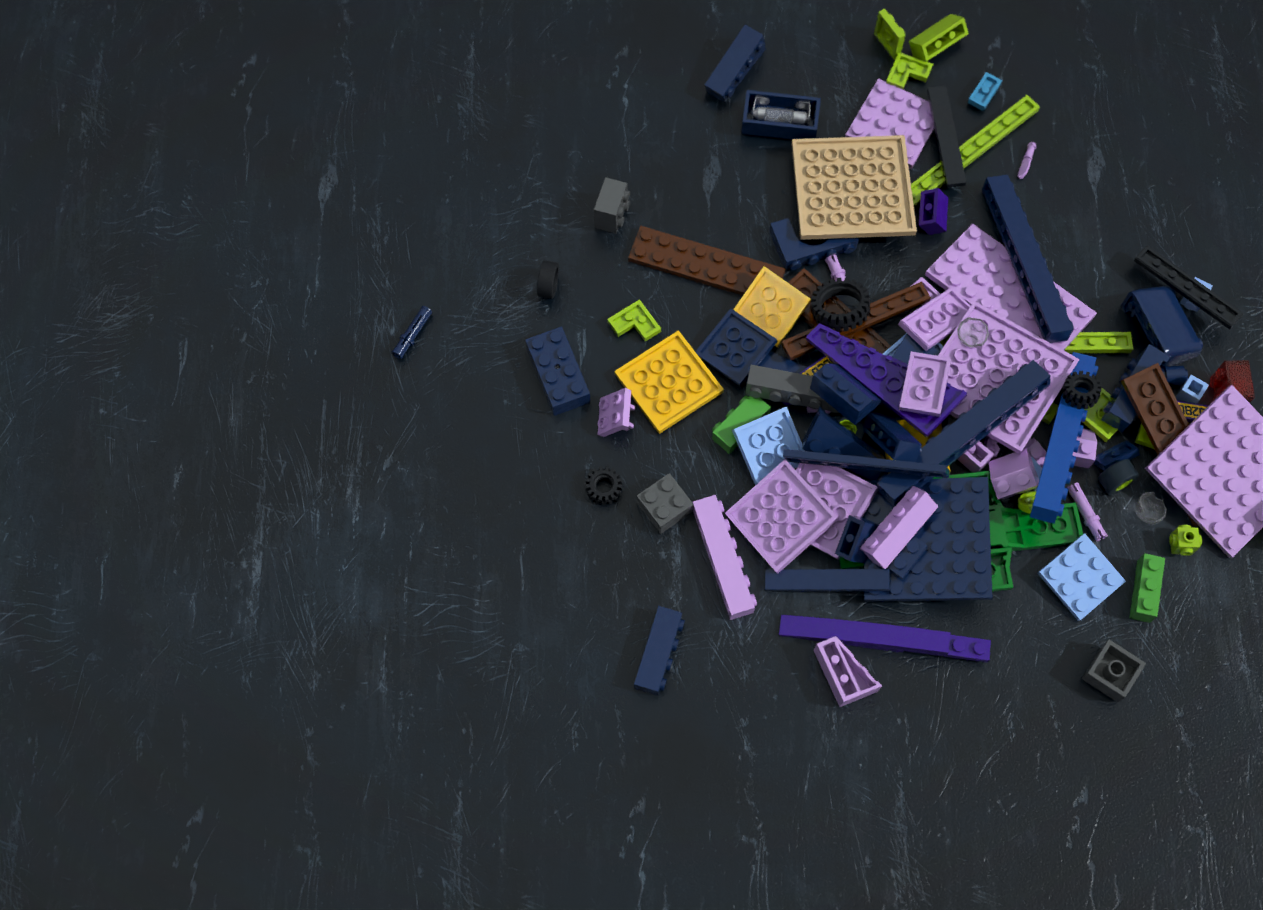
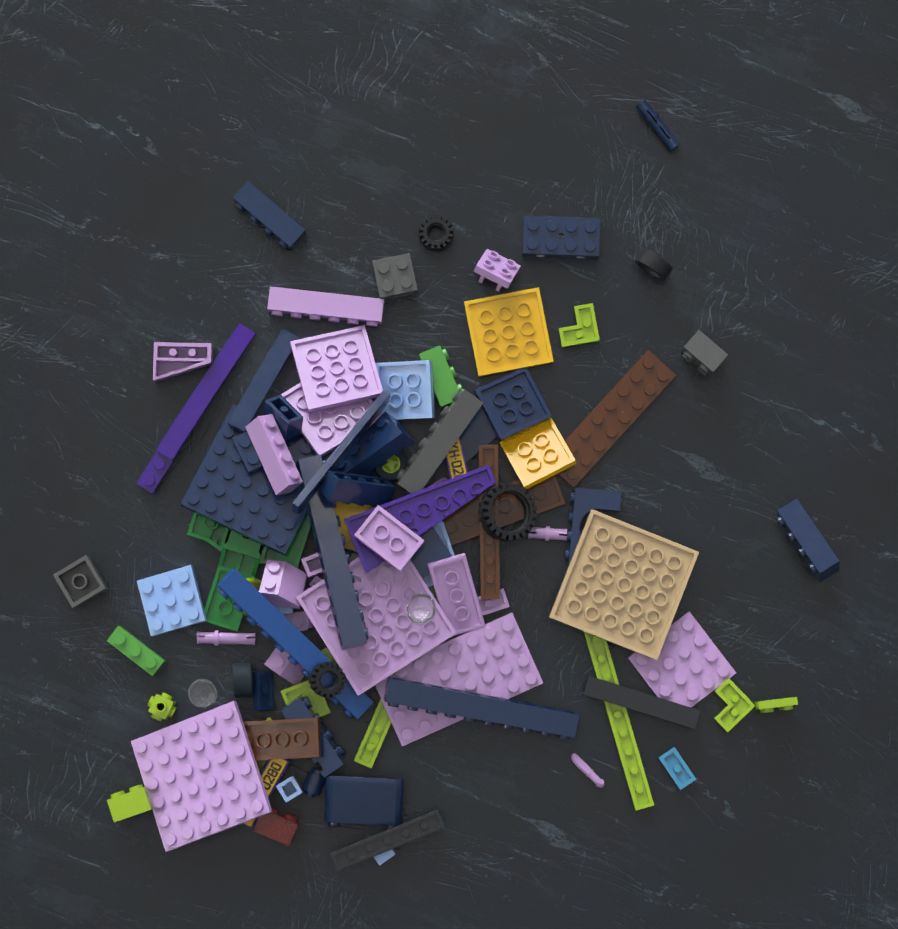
camera: 115 degrees right, 15 degrees up
(780, 115) = (732, 556): dark blue piece -> none
(844, 392) = (417, 470): dark blue slope -> none
(933, 211) = (568, 649): dark purple brick -> none
(938, 37) = (753, 751): lime brick -> none

